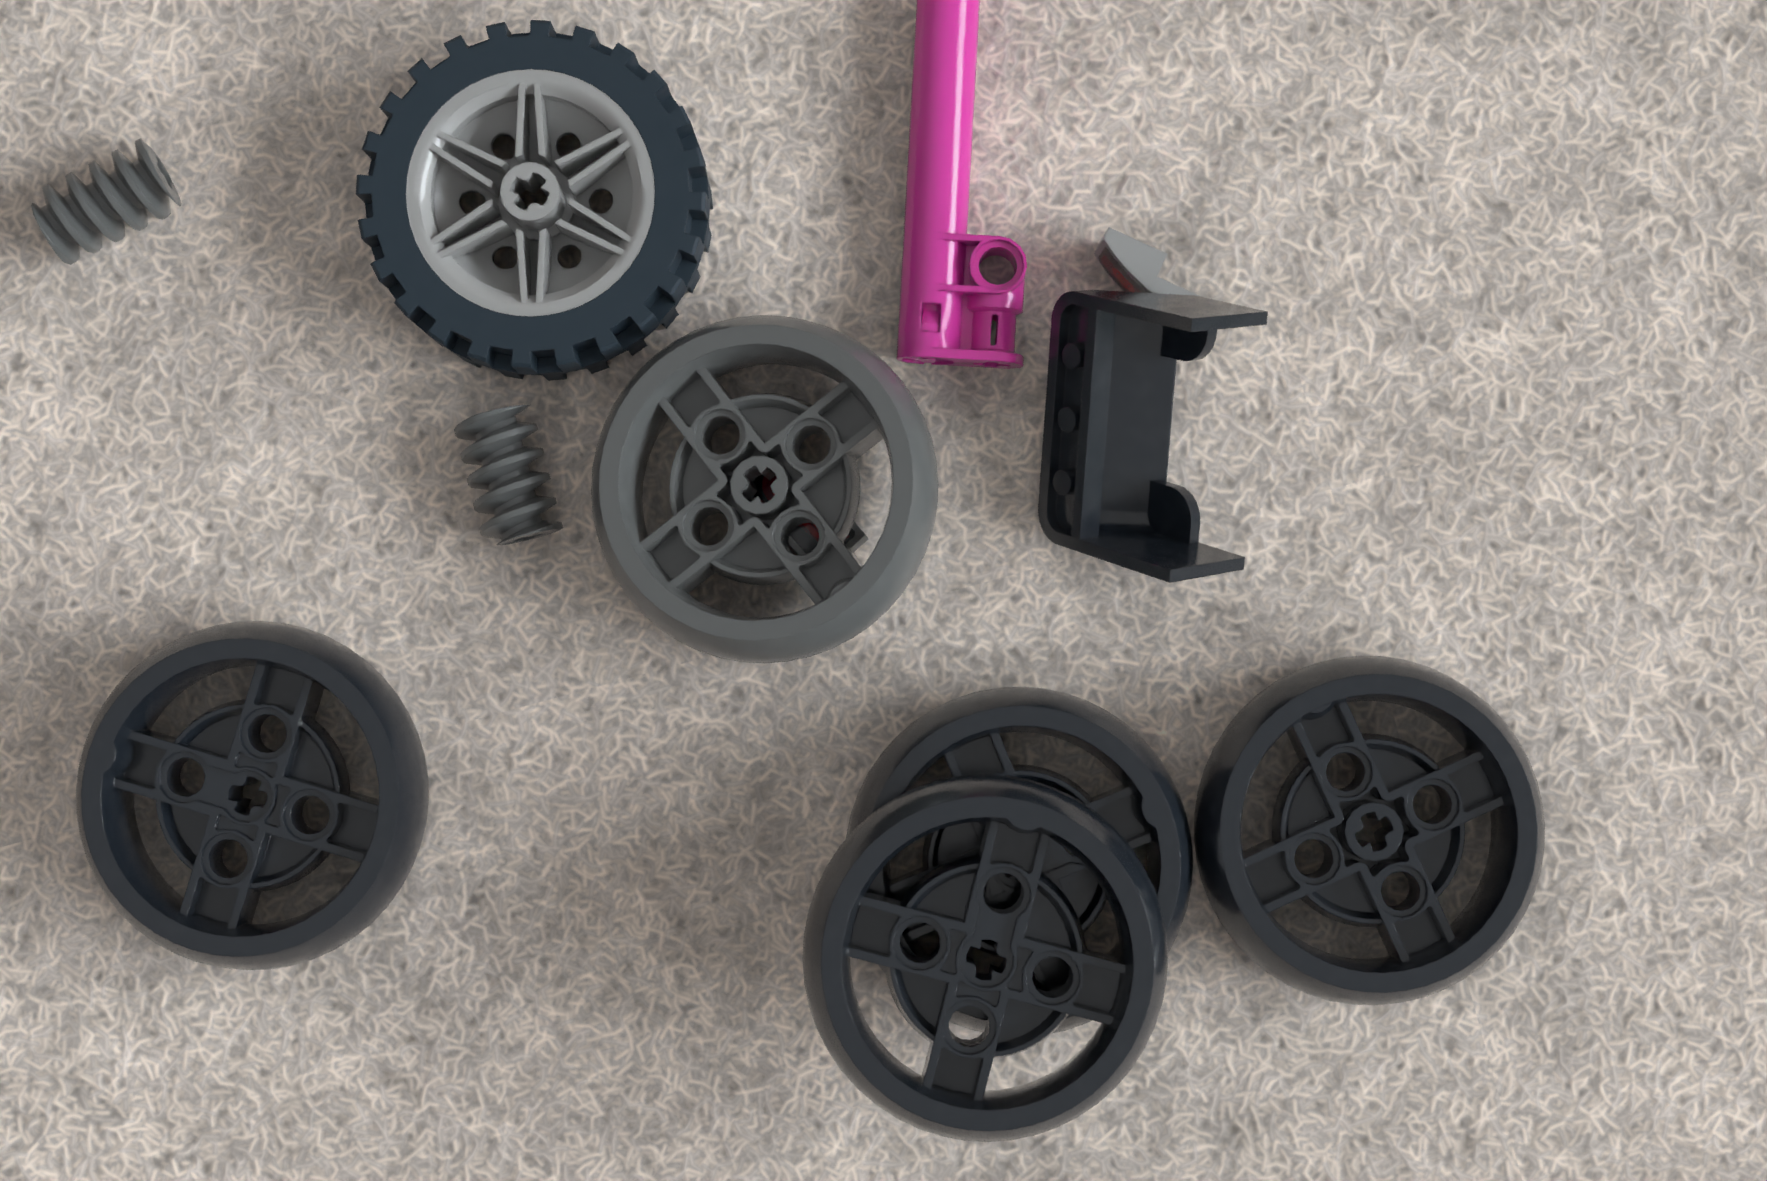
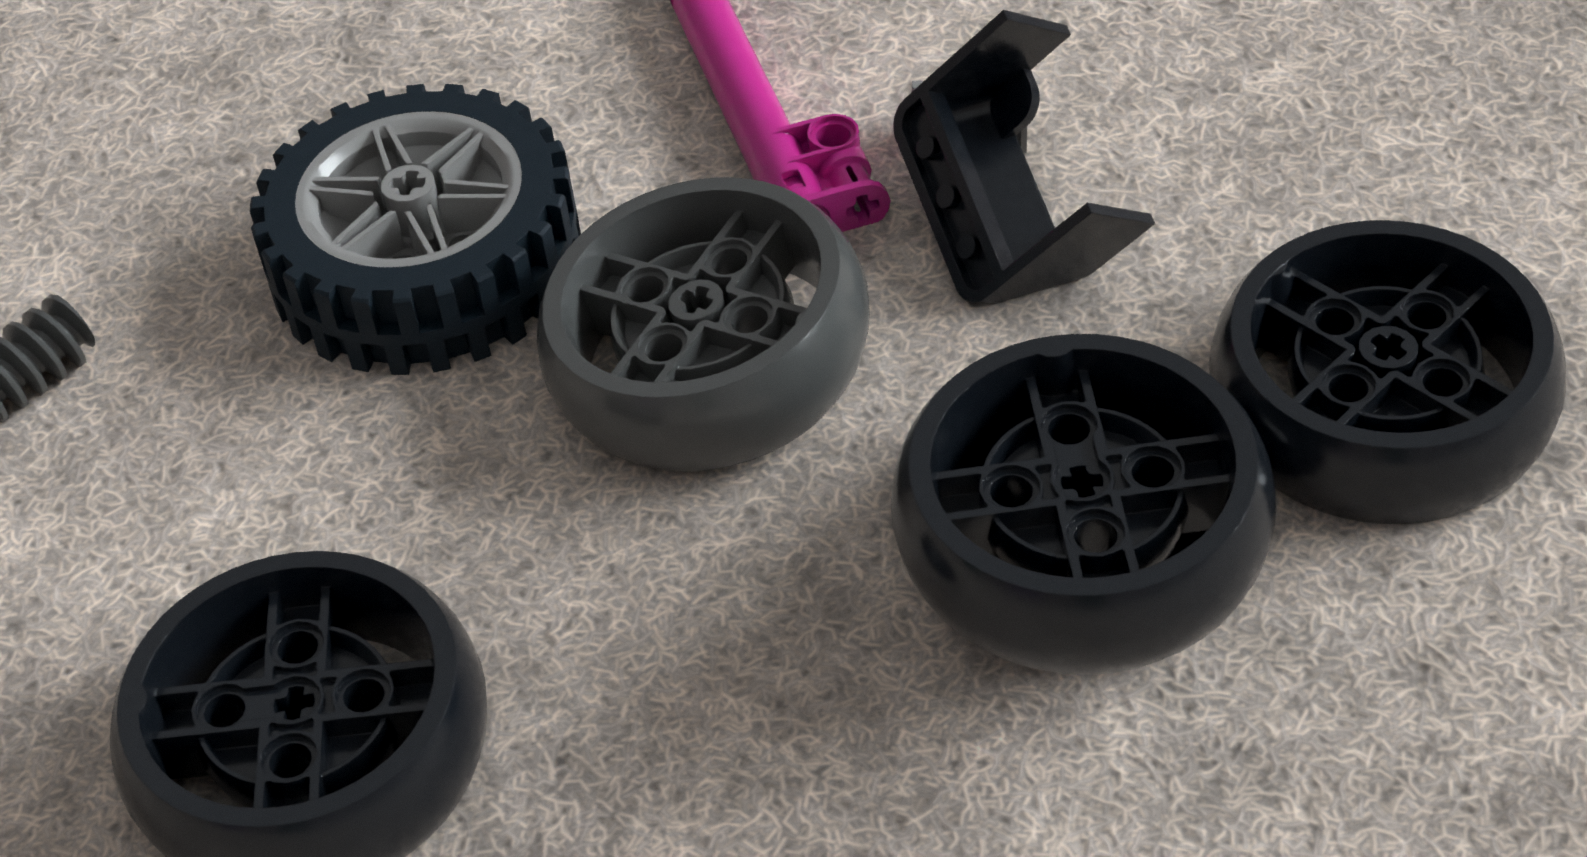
camera: 15 degrees left, 40 degrees down
(506, 475) = (463, 413): dark grey piece -> none

